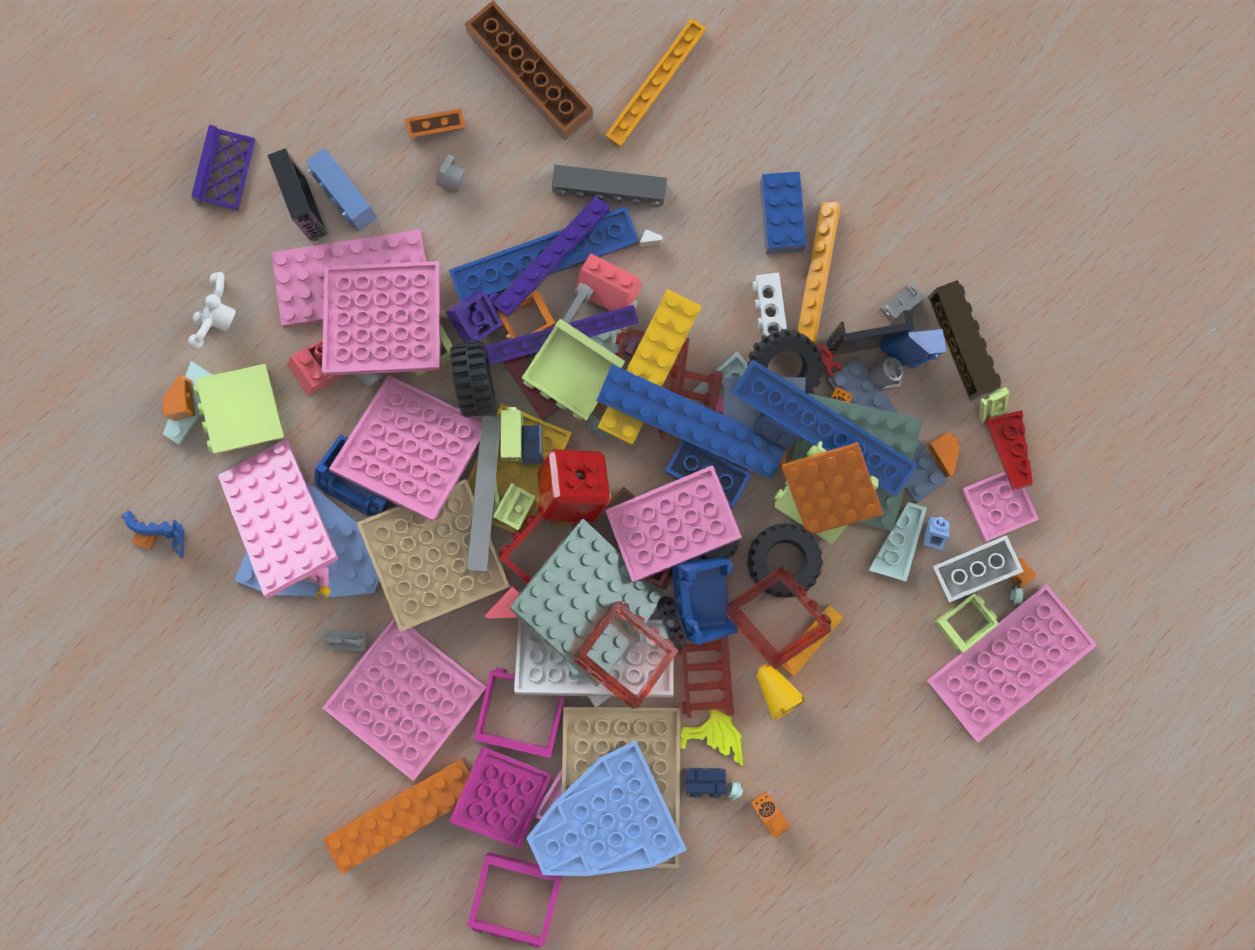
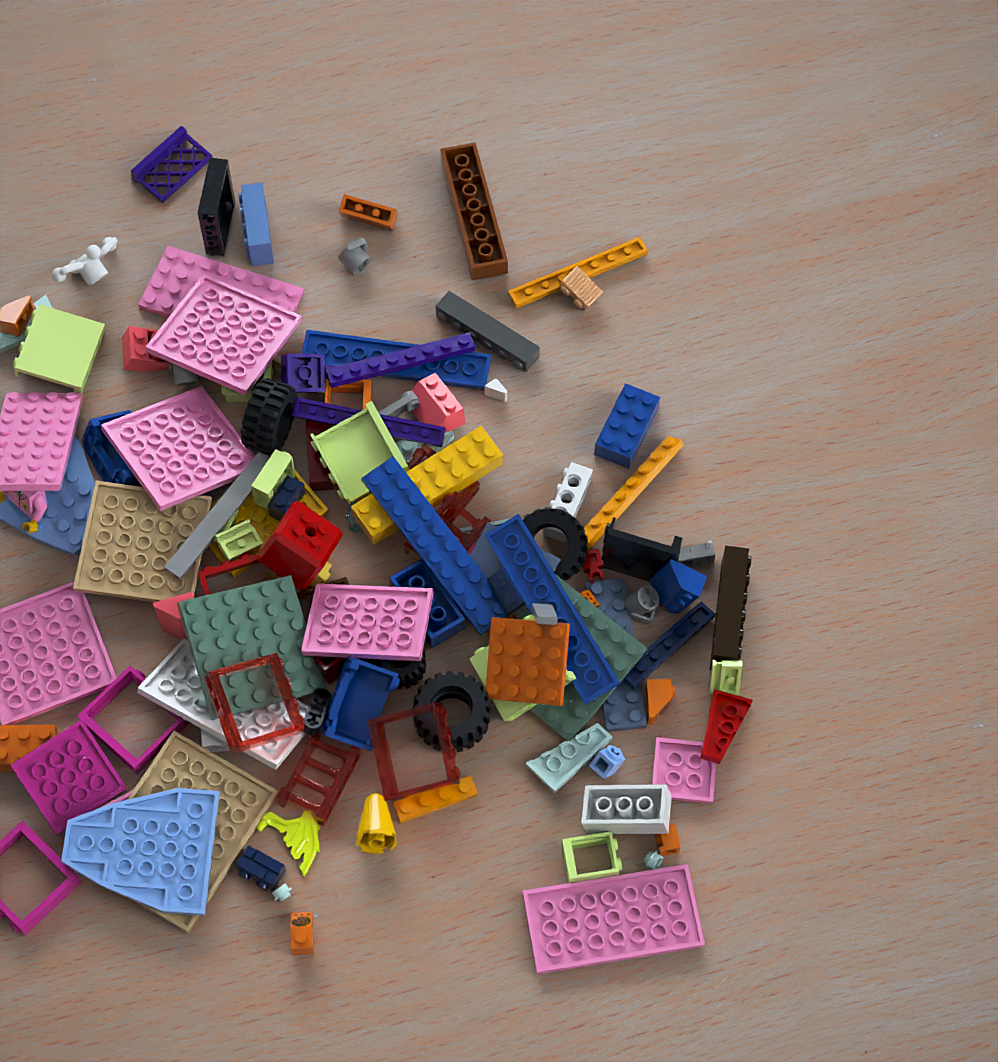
camera: 30 degrees right, 20 degrees down
(345, 640) = (22, 579): light grey hinge -> none
(669, 99) = (580, 288): none -> light nougat brick
(828, 442) = (544, 614): none -> light grey tile
(929, 399) = (669, 643): none -> dark blue plate

